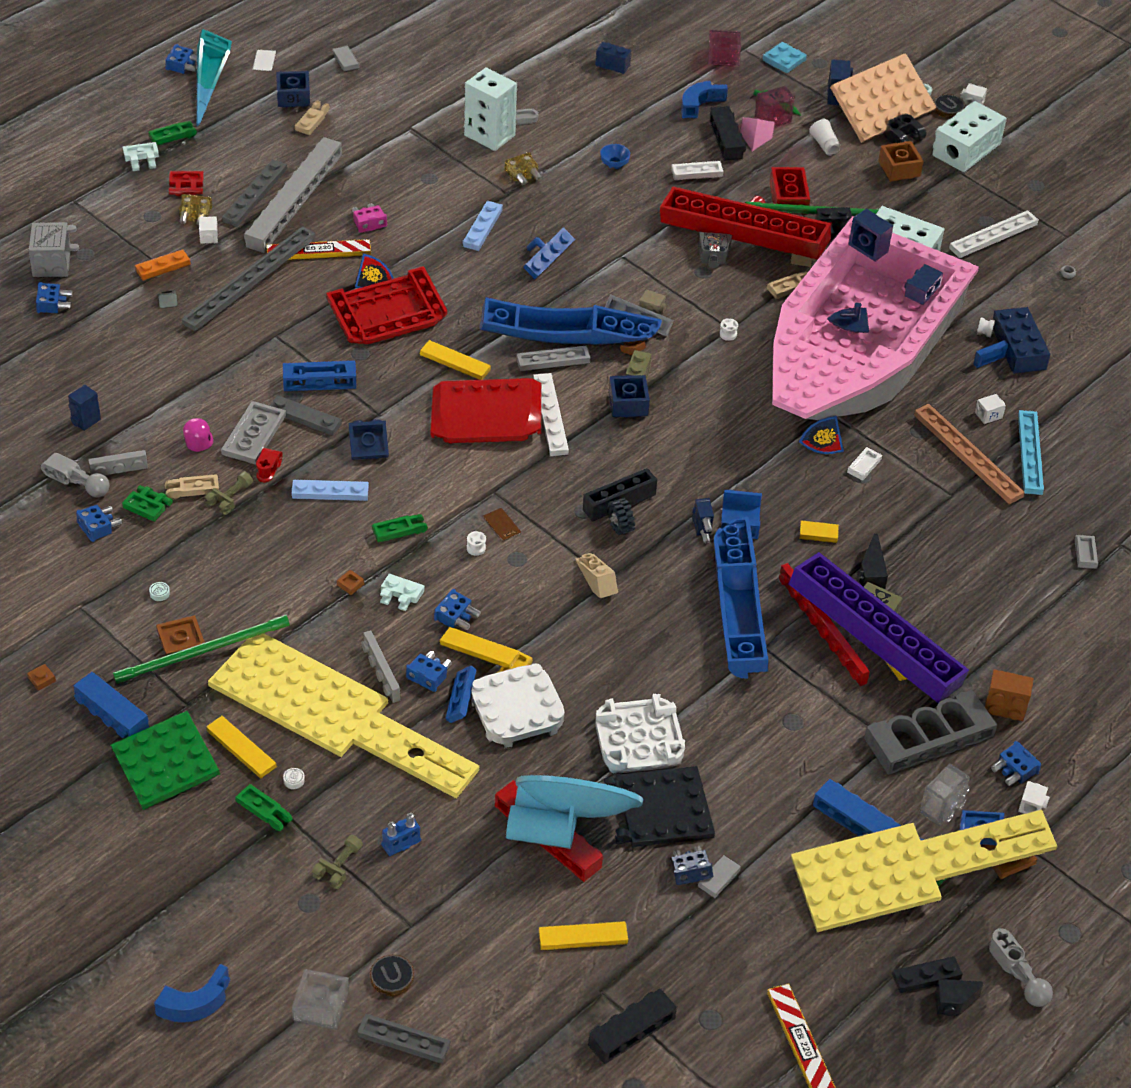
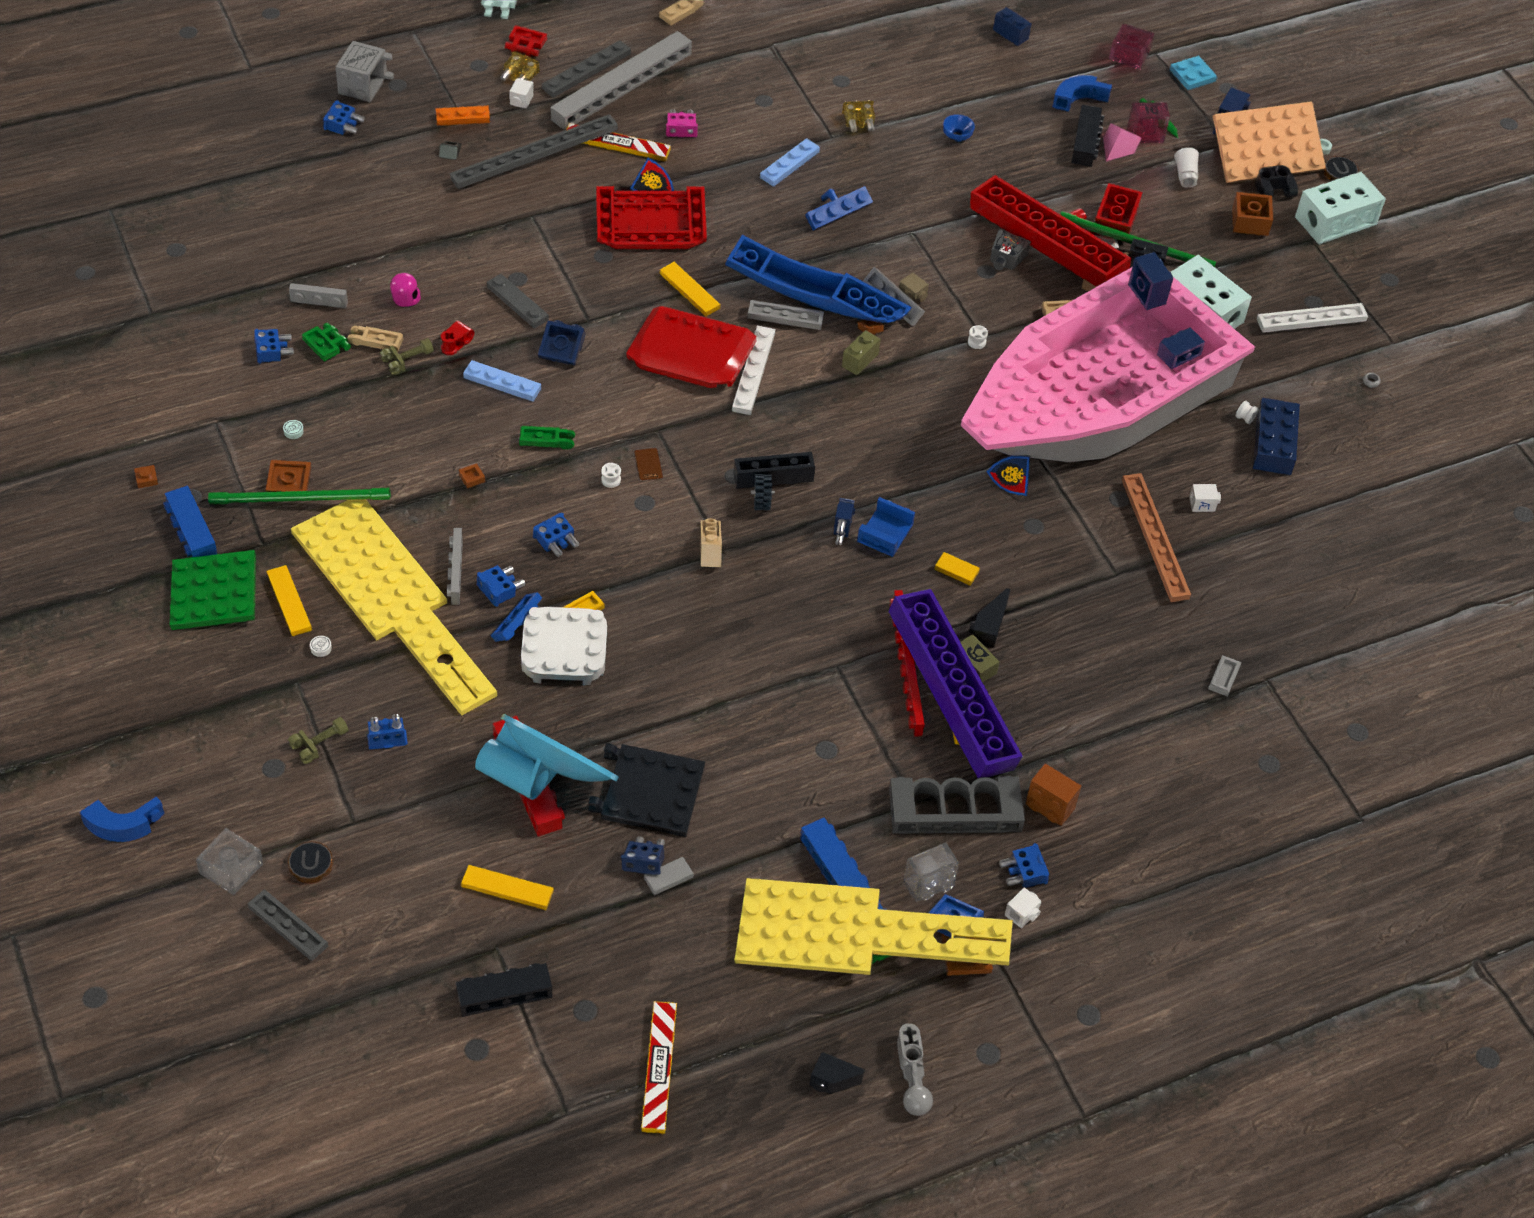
camera: 20 degrees right, 5 degrees up
(67, 470) = (269, 290): light grey beam -> none
(84, 407) = (312, 233): dark blue brick -> none
(253, 432) = (459, 302): light grey plate -> none
(263, 807) = (277, 662): green hinge -> none
(319, 375) = (549, 266): blue brick -> none
(403, 589) = (518, 498): light aqua plate -> none
(479, 647) = (559, 578): yellow tile -> none
(490, 109) = (850, 46): light aqua piece -> none
(526, 116) = (889, 63): light grey tile -> none
(628, 396) = (837, 374): dark blue brick -> none
(639, 735) = (665, 712): white plate -> none
(697, 170) = (1035, 165): white plate -> none
(740, 599) = (834, 611): blue slope -> none
(851, 319) = (1101, 362): dark blue shield -> none
(864, 463) = (1042, 514): white tile -> none
(926, 974) = (817, 1041): black plate -> none
(973, 93) = (1372, 167): white brick -> none
(990, 354) = (1236, 441): blue tile -> none
(1030, 452) = (1222, 555): medium azure plate -> none

